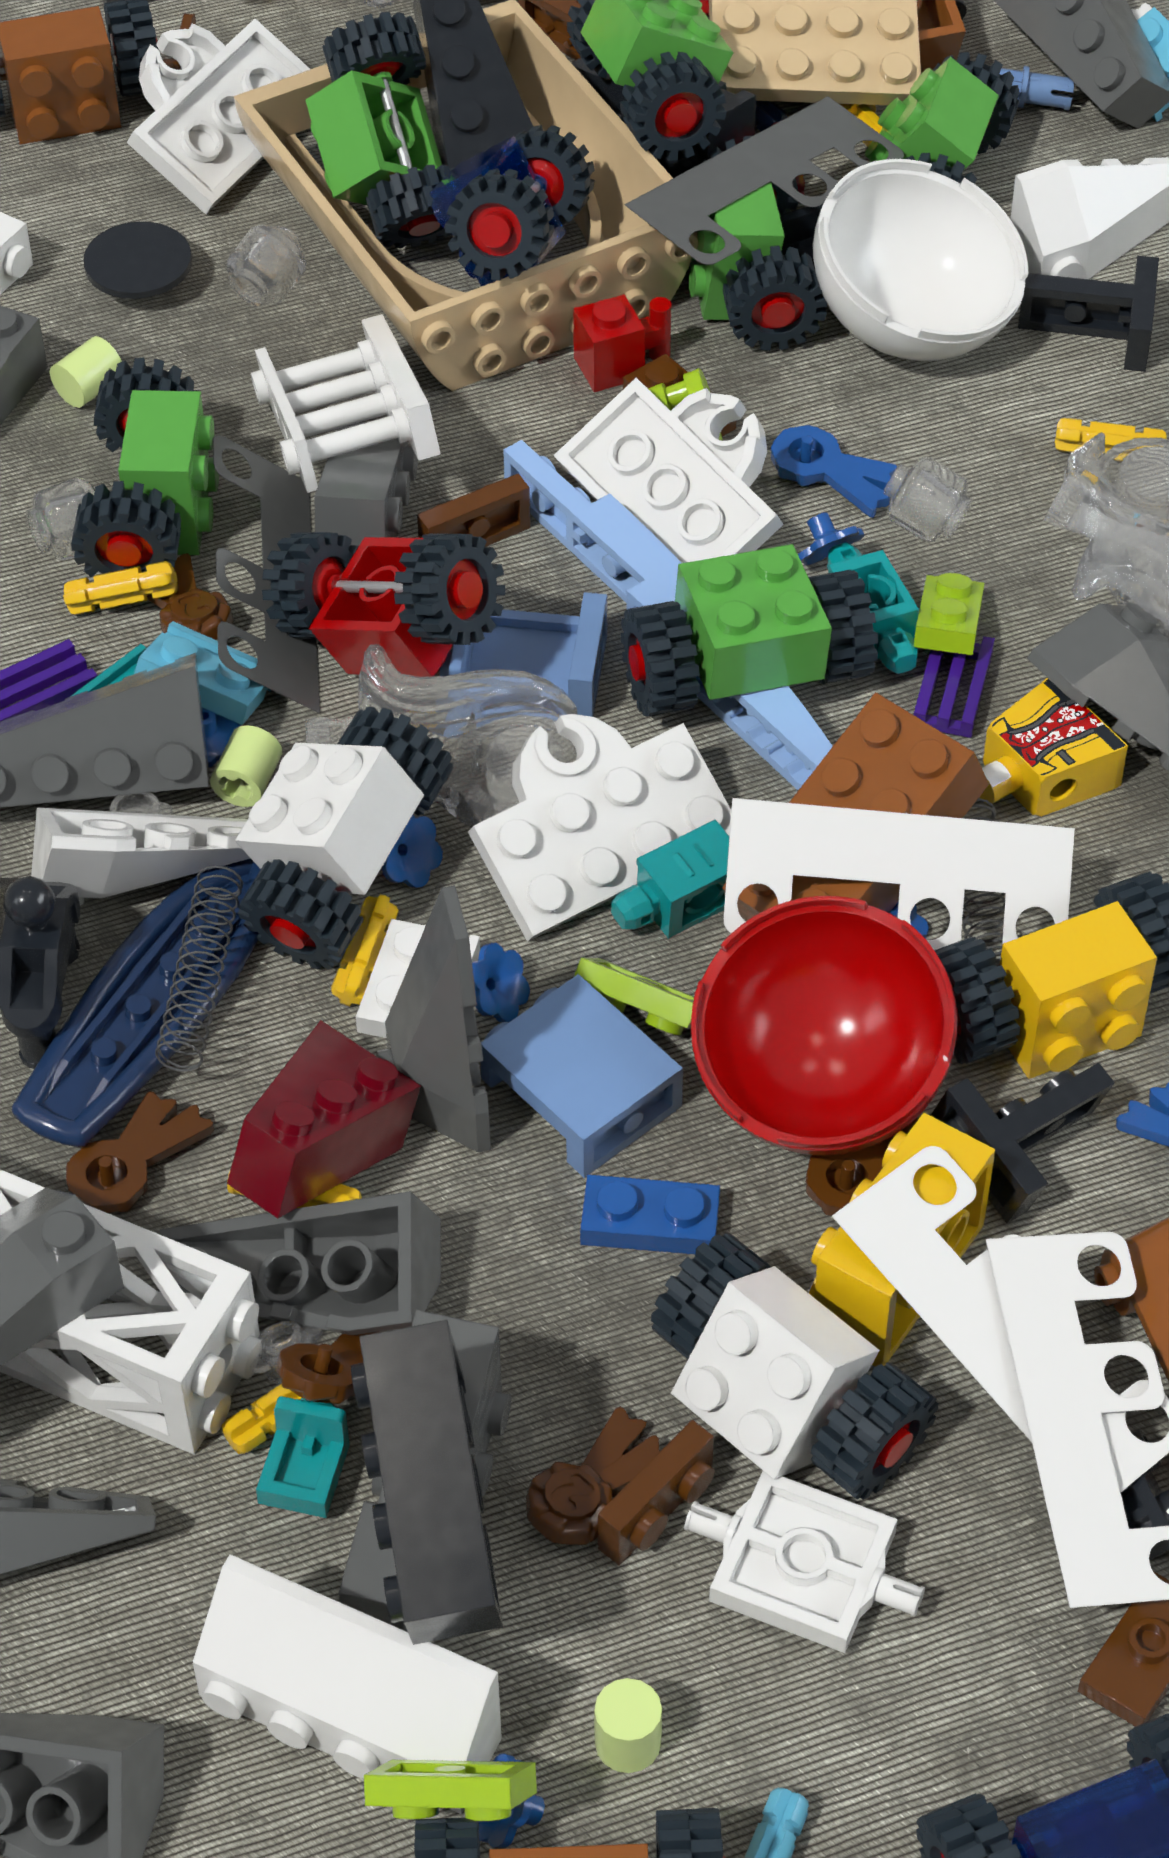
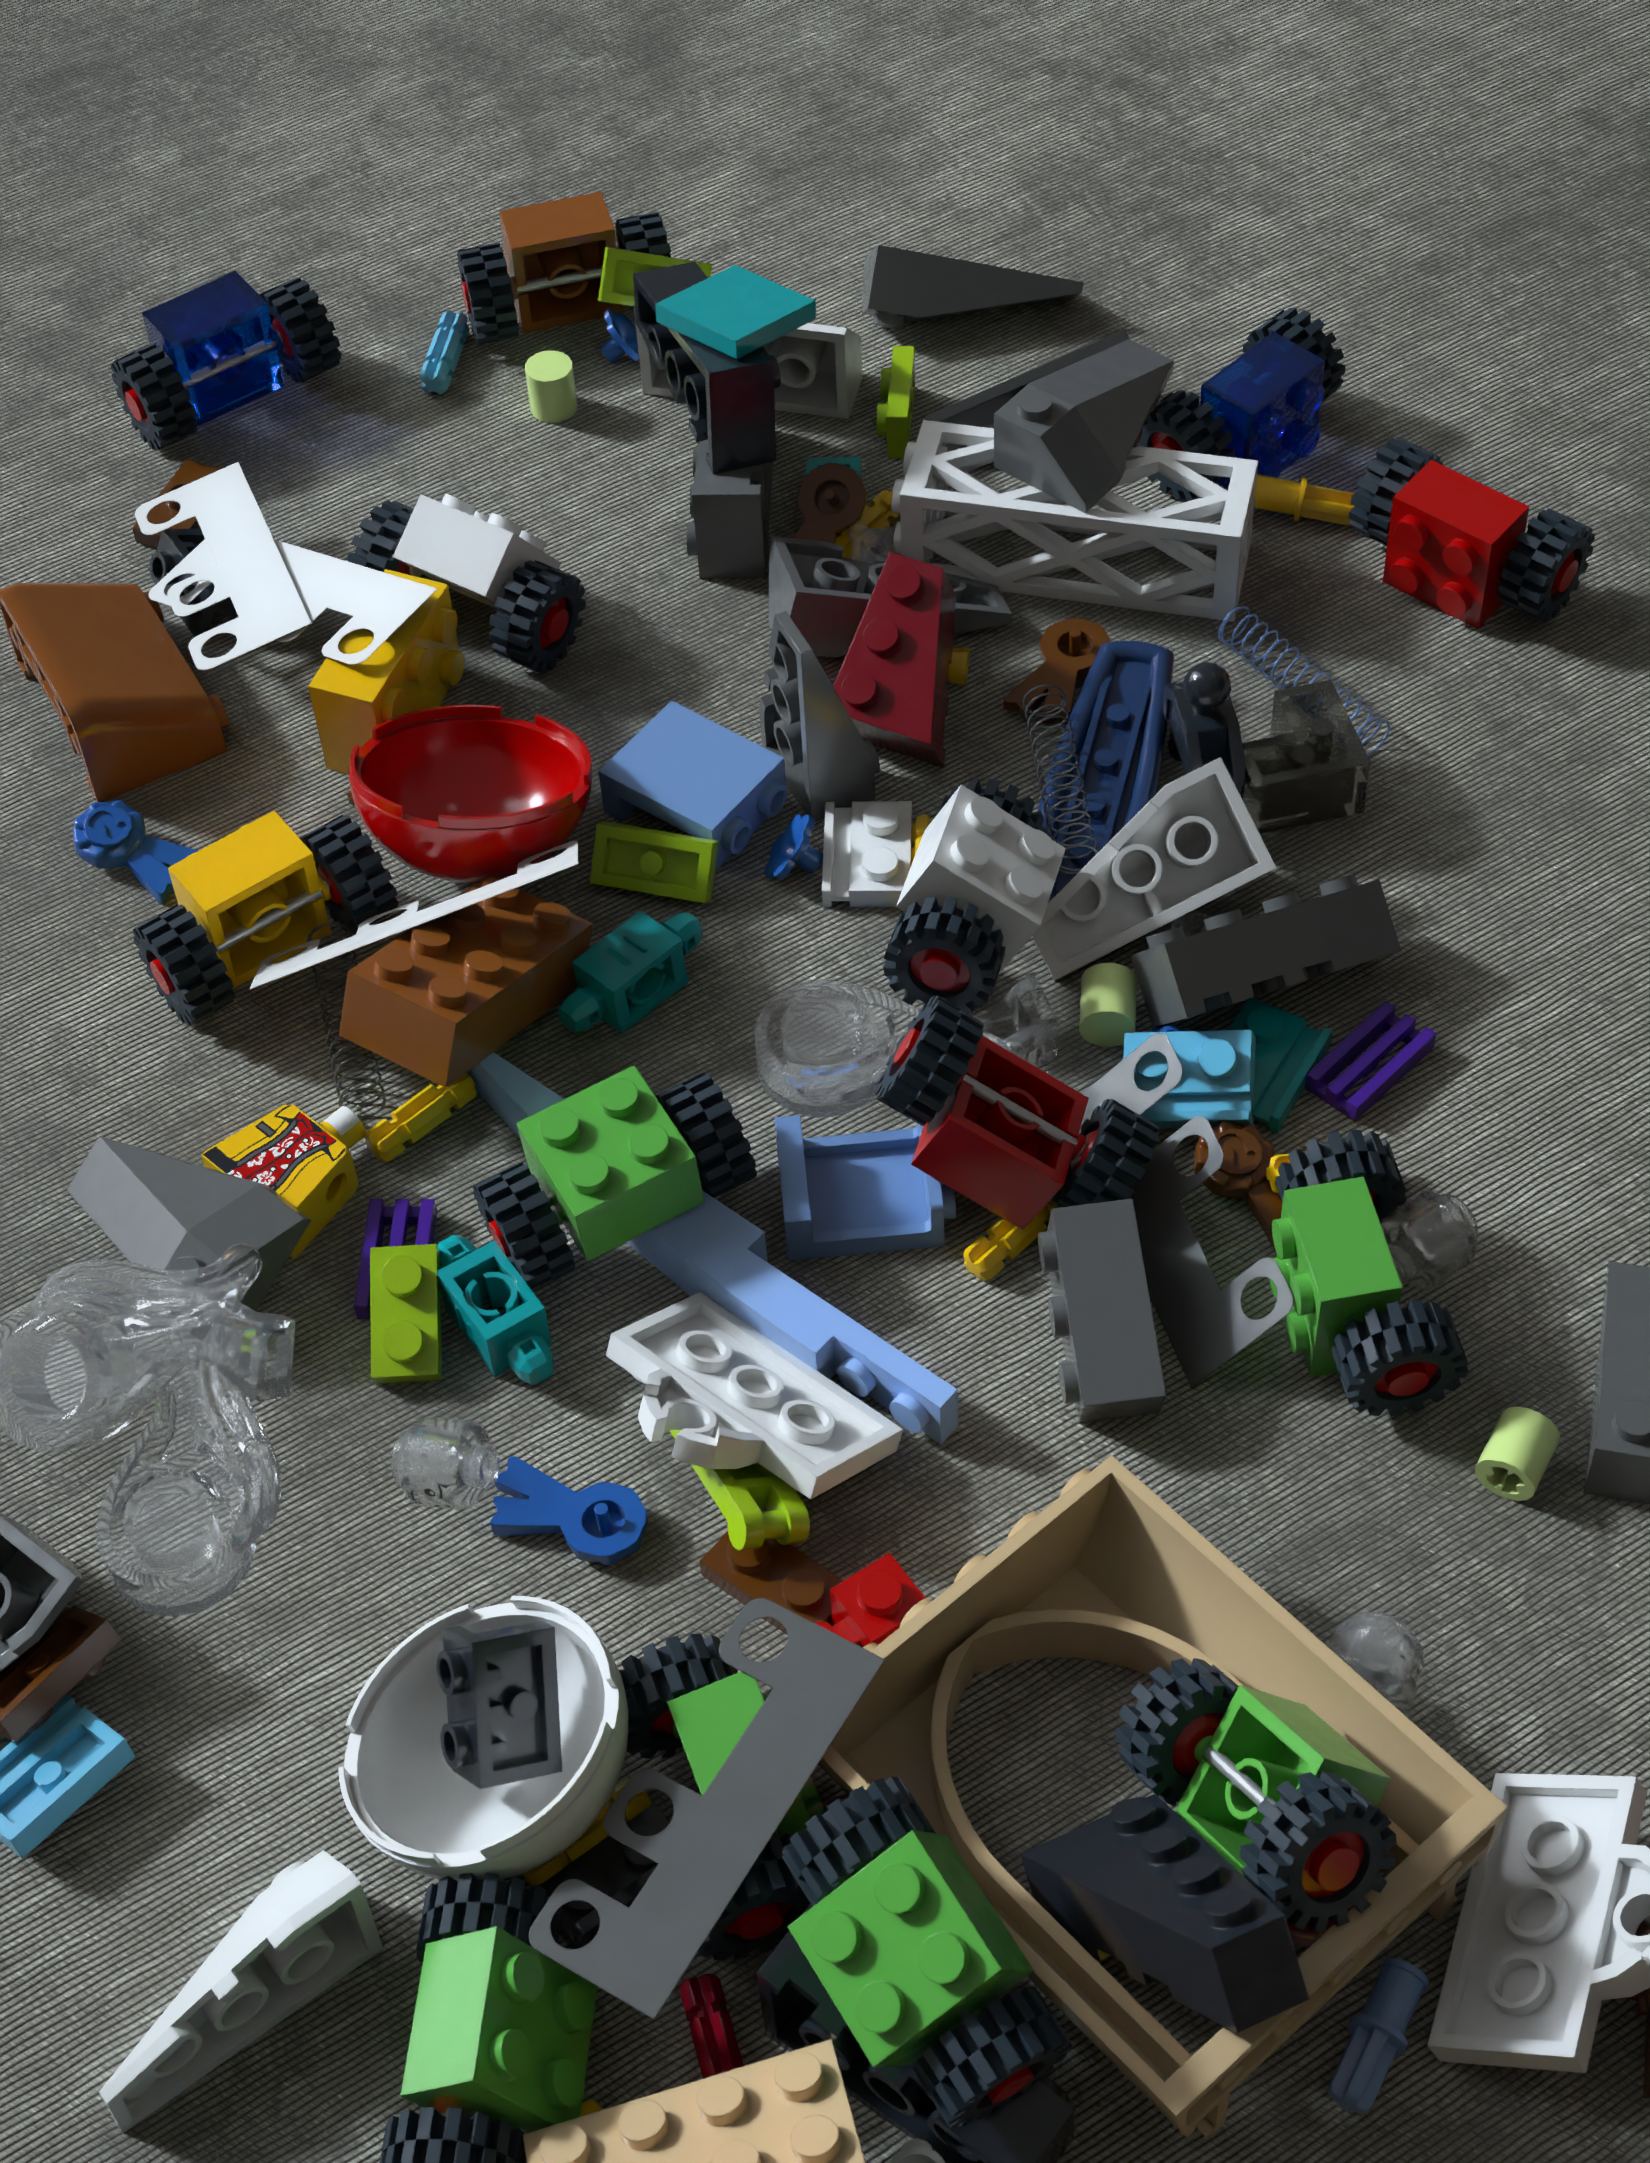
camera: 170 degrees right, 0 degrees up
(137, 260) = (1542, 1635): black piece -> none
(166, 1604) = (899, 388): none -> lime plate
(383, 1434) = (735, 311): none -> teal tile
(384, 373) = (1096, 1393): white fence -> none
(488, 513) = (974, 1327): reddish brown plate -> none
(513, 202) = (1050, 1655): brick -> none
(568, 1497) = (619, 507): reddish brown piece -> none
(591, 818) = (730, 996): white plate -> none
(642, 1507) = (565, 507): reddish brown plate -> none
(648, 1214) = (608, 708): blue plate -> none
(803, 1560) = (470, 480): white plate -> none
(826, 537) = (552, 1377): blue plant -> none
(896, 282) = (500, 1703): none -> black bracket
(1020, 1127) = (301, 792): black bracket -> none
(1072, 434) = (229, 1626): yellow axle -> none
(1096, 308) = (240, 1826): black bracket -> none

